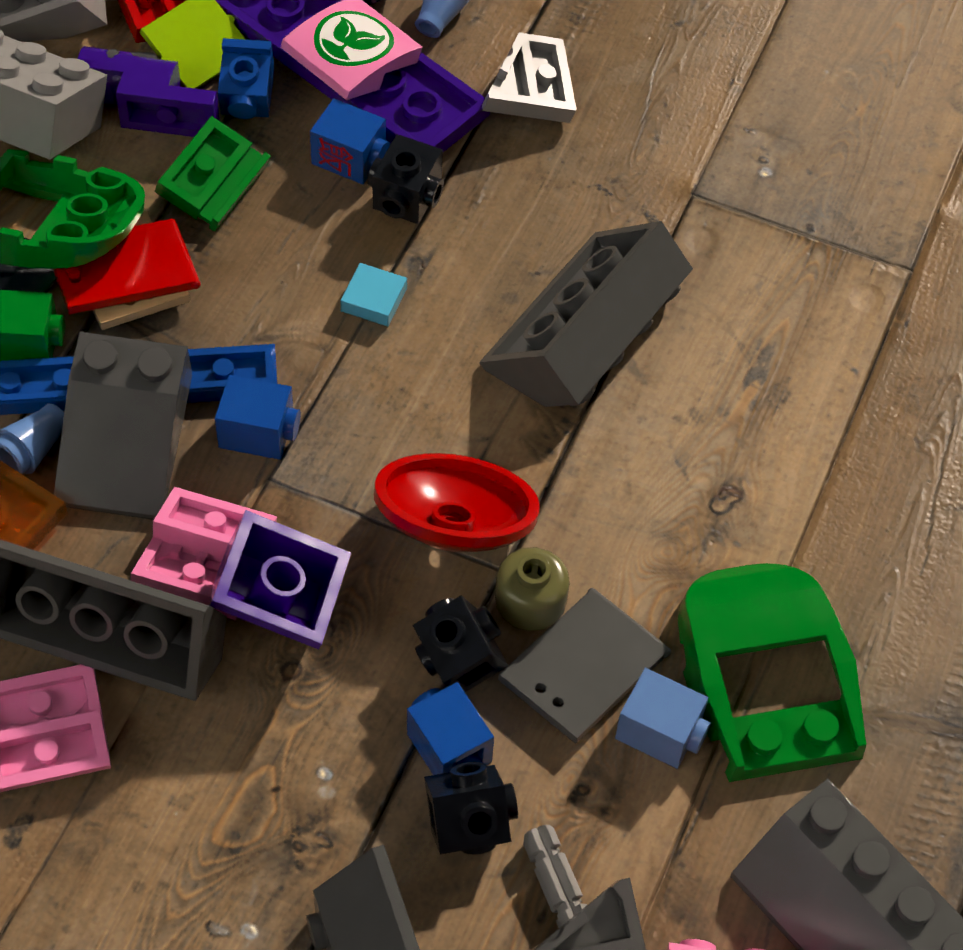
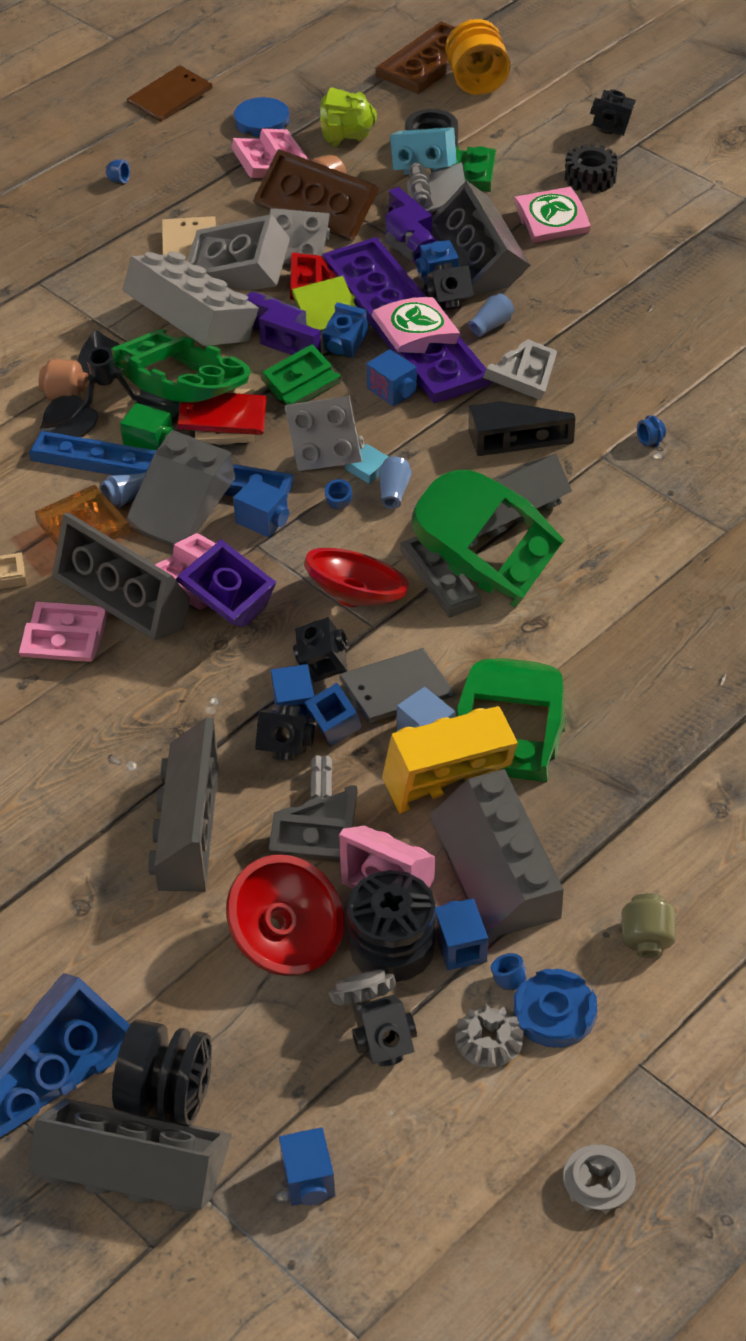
camera: 25 degrees right, 10 degrees down
(303, 269) = (324, 433): none -> light grey hinge
(356, 353) = (338, 494): none -> blue hinge
(407, 179) = (416, 403): black brick -> none
(428, 315) = (394, 479): none -> medium blue cone
(532, 588) = (380, 633): olive head -> none
(532, 756) = (333, 714): none -> brick
(560, 180) = (517, 427): none -> black slope
(561, 453) = (451, 591): none -> dark grey tile
(569, 371) = (456, 511): none -> green slope
(734, 779) = (446, 751): none -> yellow wedge
(746, 138) = (651, 431): none -> blue plate

